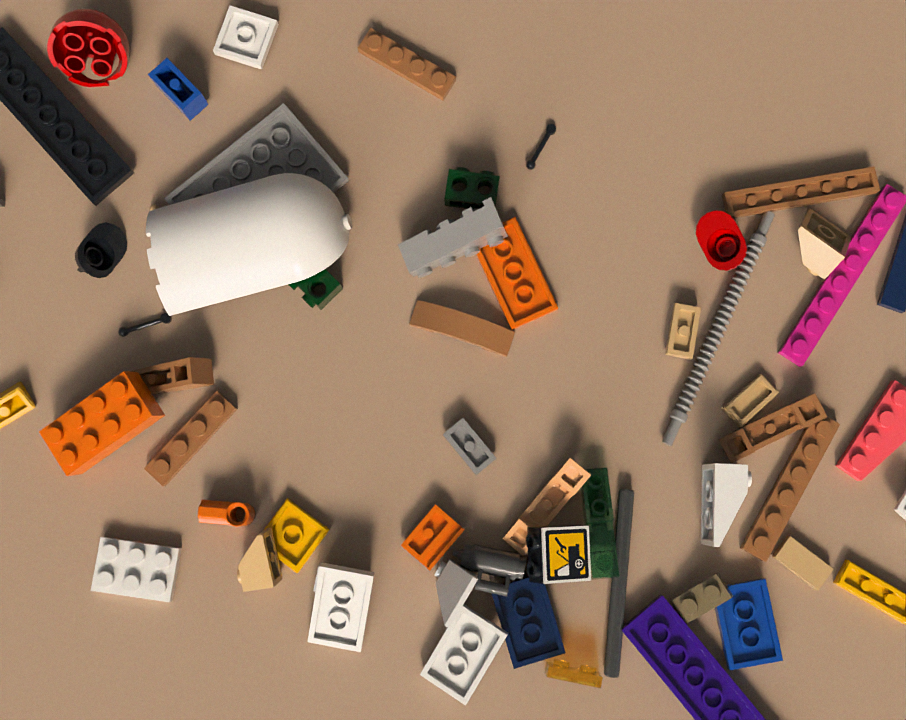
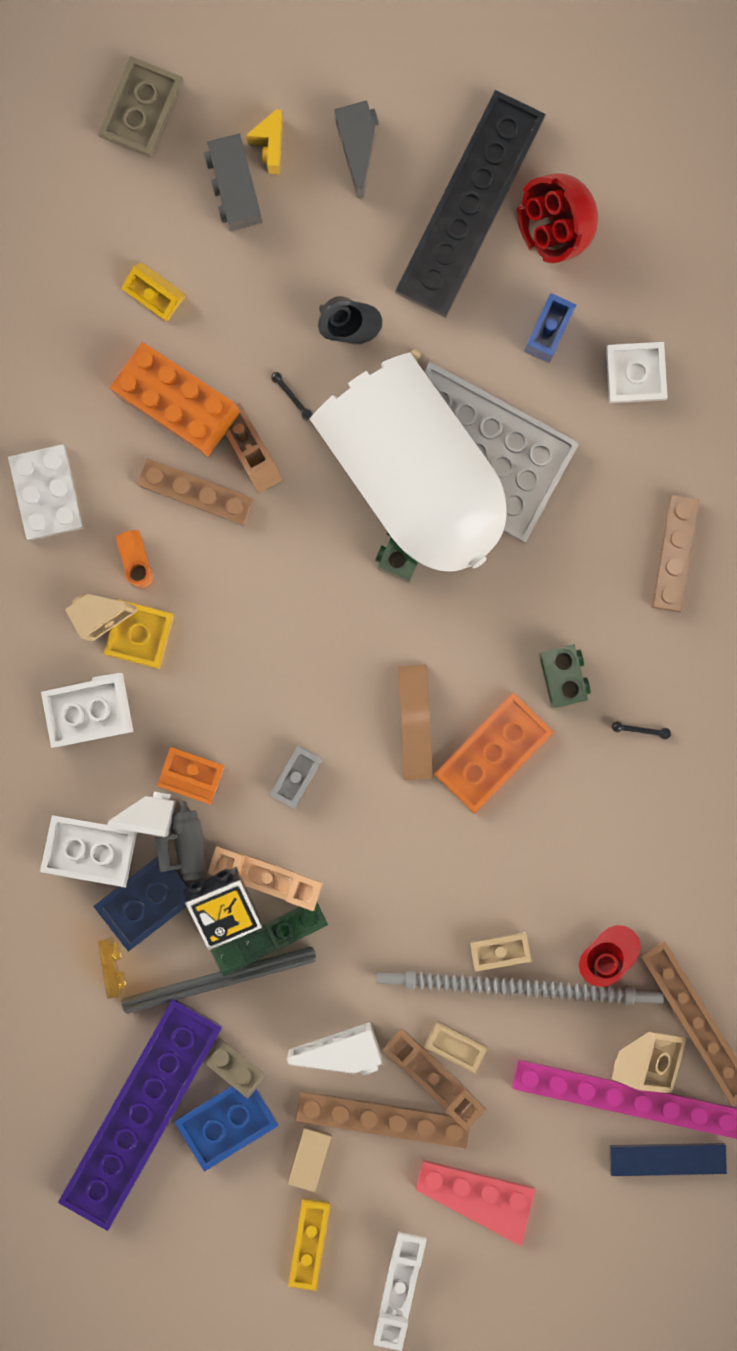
camera: 65 degrees right, 5 degrees up
(453, 239) = (501, 678): light grey wedge -> none

